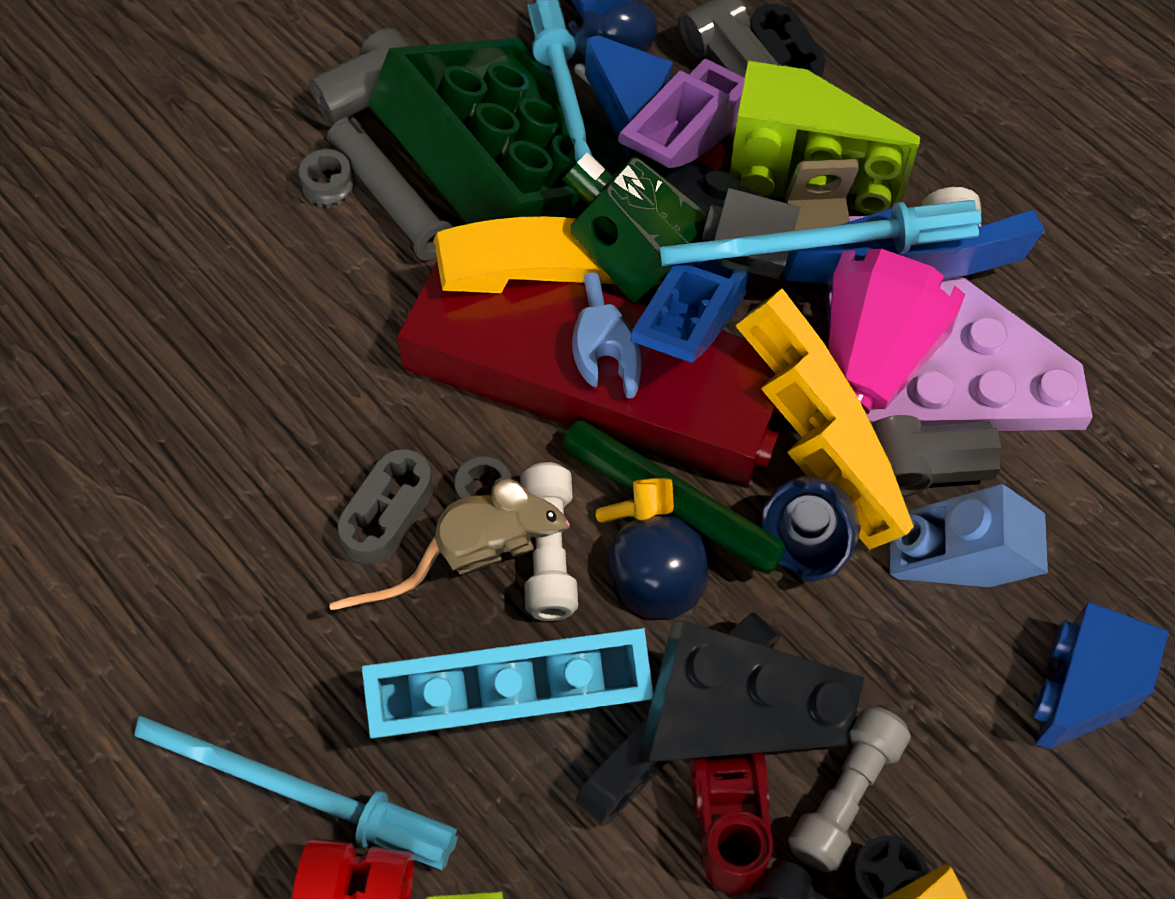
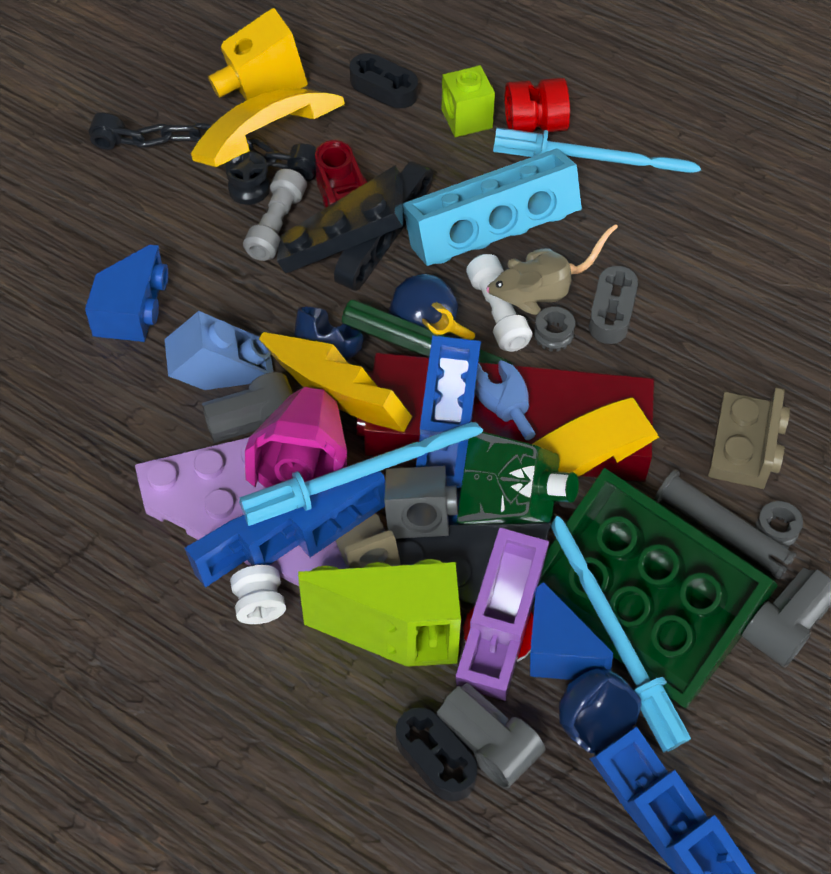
camera: 165 degrees right, 5 degrees down
(303, 278) = (747, 439): none -> dark tan bracket

